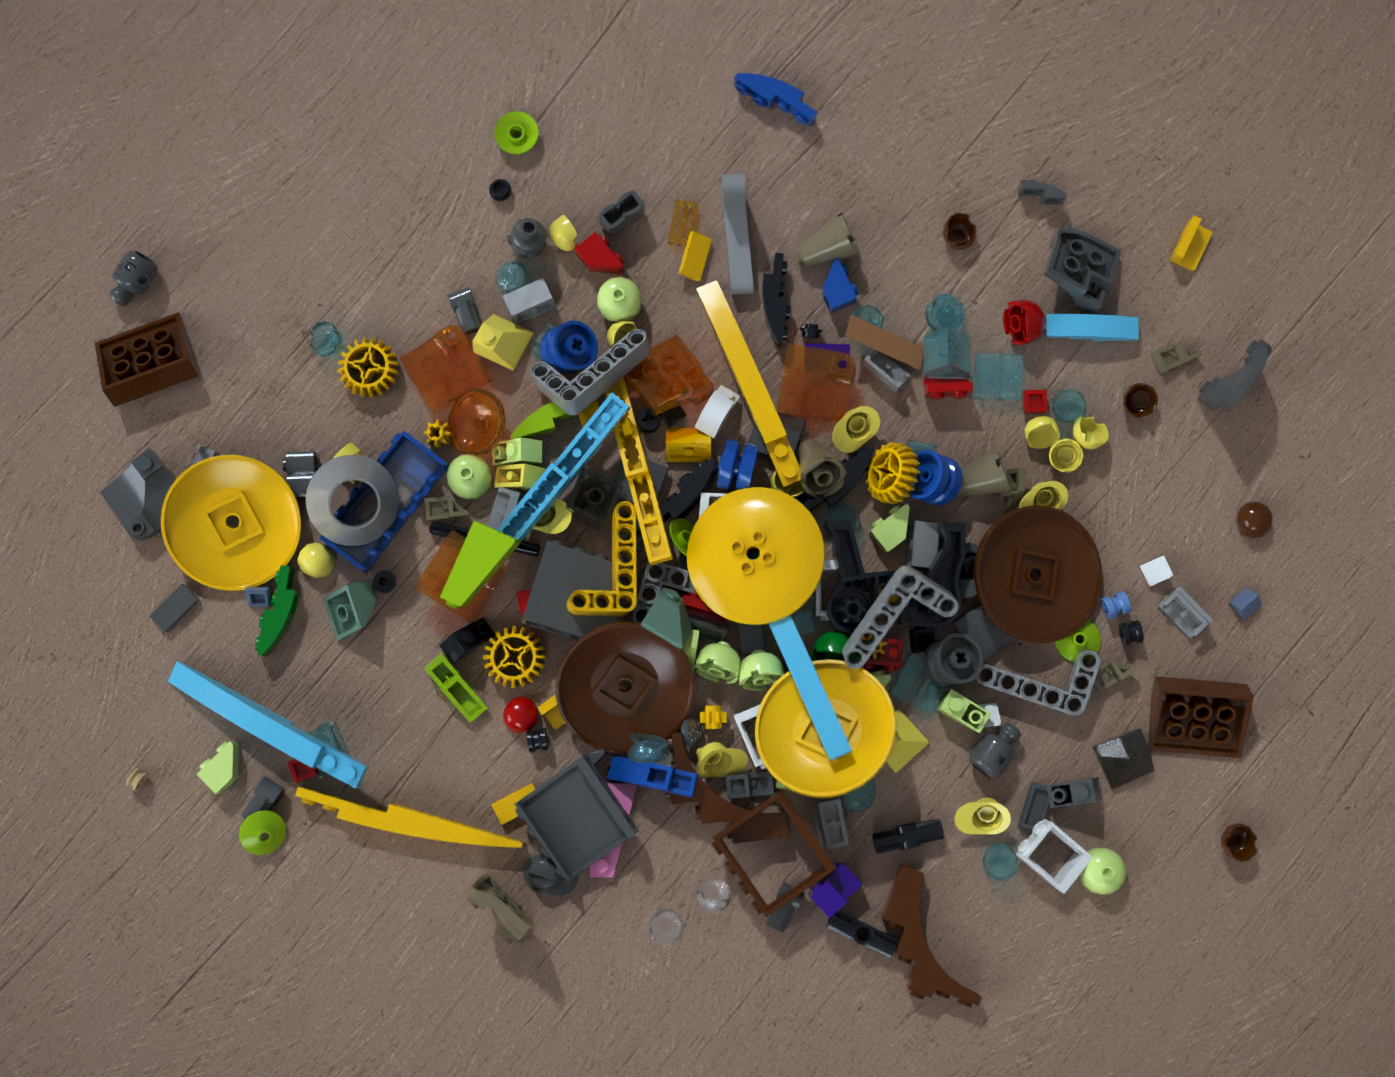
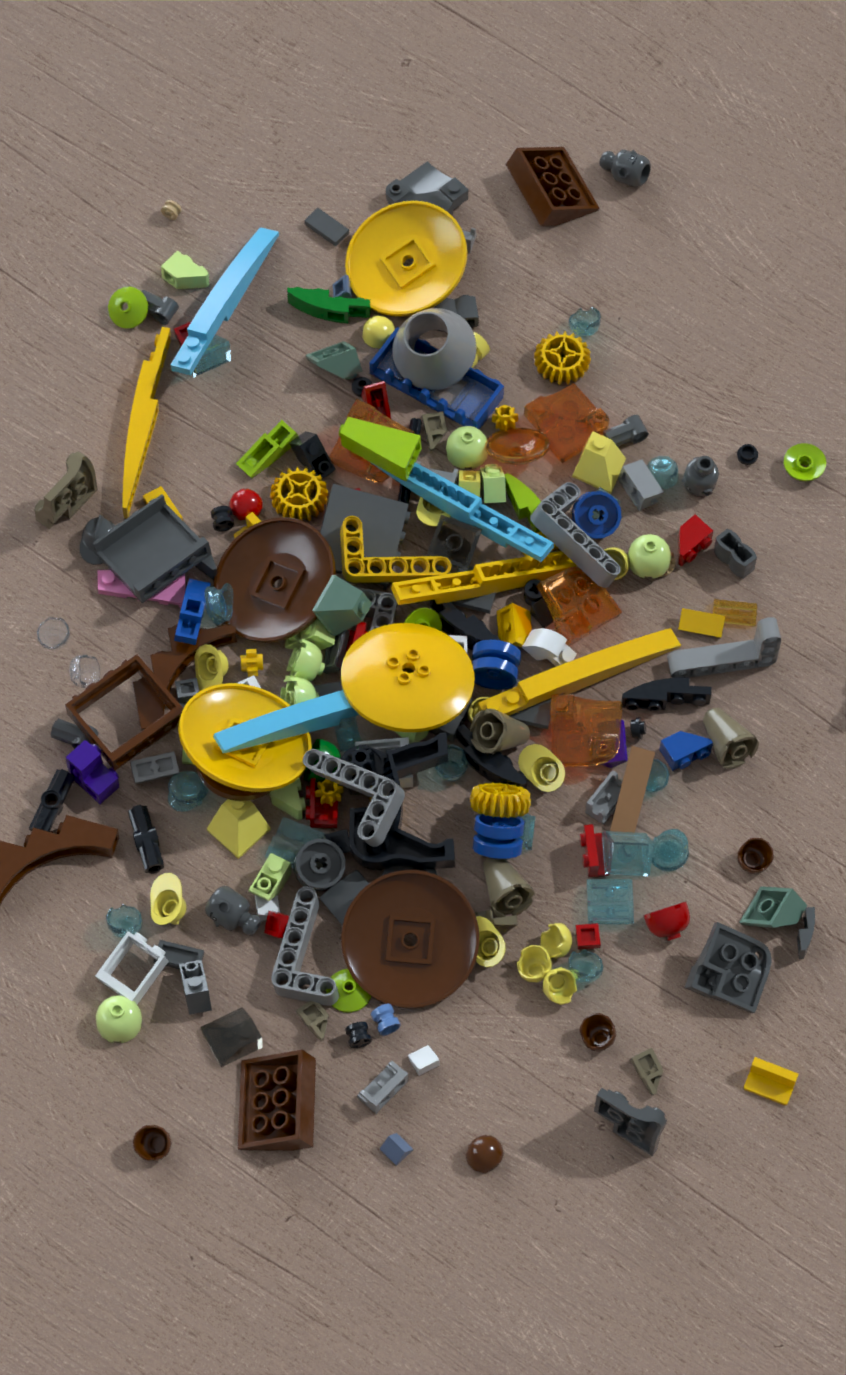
camera: 80 degrees right, 20 degrees down
(408, 567) = (377, 397): none -> red slope
(563, 233) = (708, 505): light yellow hair -> none
(691, 731) = (237, 644): dark grey tile -> none
(891, 531) = (445, 810): yellowish green slope -> none
(921, 544) = (433, 833): light grey hinge -> none
(1011, 707) = (276, 924): none -> red plate
(1017, 222) = (774, 908): none -> sand green slope
(1092, 327) = (670, 985): medium azure slope -> none

